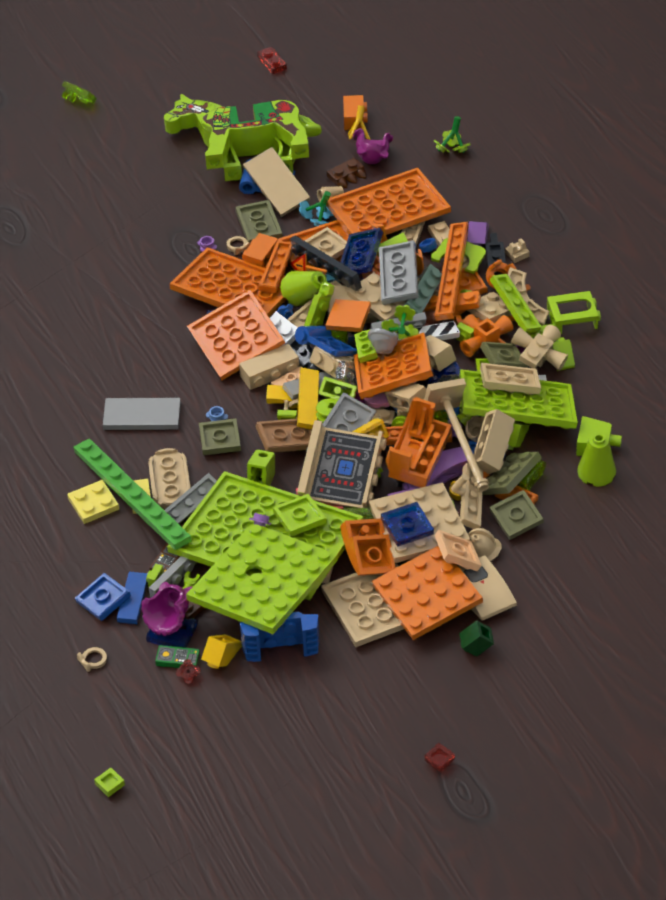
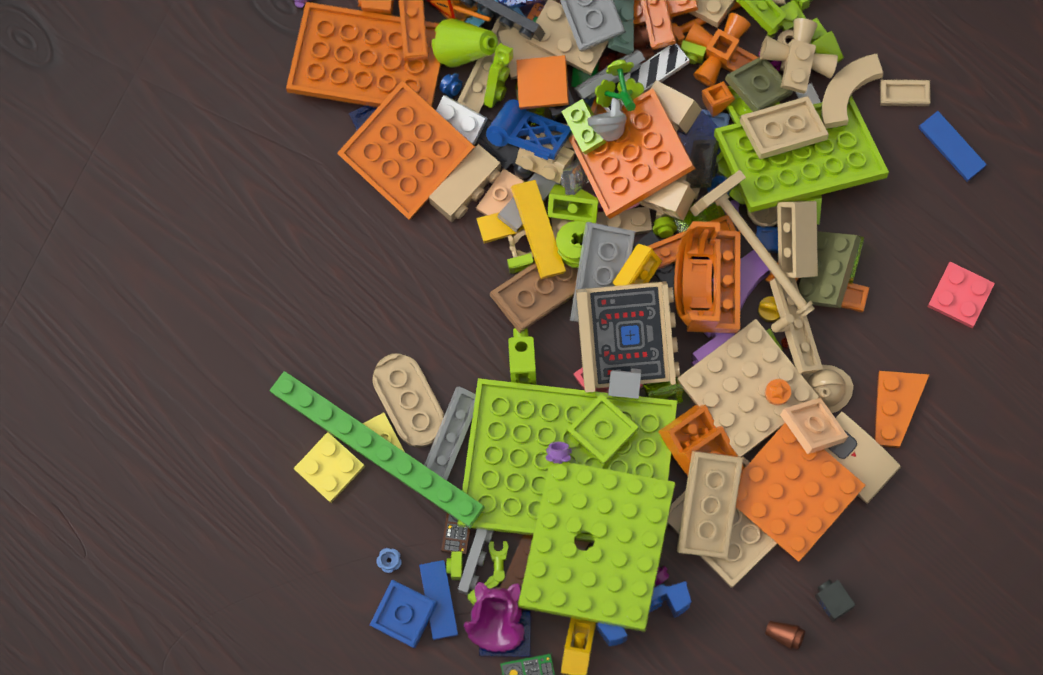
camera: 15 degrees left, 30 degrees up
(108, 563) = (384, 555): none -> medium blue plate
(141, 413) = (332, 307): light grey tile -> none
(216, 413) = (428, 274): medium blue plate -> none
(219, 436) = (446, 317): olive plate -> none
(329, 493) = (625, 383): none -> light grey panel
(358, 578) = (709, 504): none -> tan tile
(385, 684) = (786, 634): none -> copper cone
(407, 524) = (741, 408): clear blue plate -> none
(431, 672) = (834, 599): none -> pearl dark grey brick
(439, 522) = (778, 392): none -> orange tile
(471, 360) = (717, 98): none -> orange slope
(476, 638) = (873, 538): dark green brick -> none
(516, 514) = (855, 330): olive plate -> none
(529, 568) = (895, 405): none -> orange wing
(558, 379) = (842, 87): none -> tan tile
(592, 426) = (910, 175): lime torso -> none
(597, 462) = (925, 221): lime cone -> none
(606, 517) = (961, 295): none -> coral plate
(612, 394) = (905, 93): none -> tan tile
(635, 431) = (952, 146): none -> blue tile

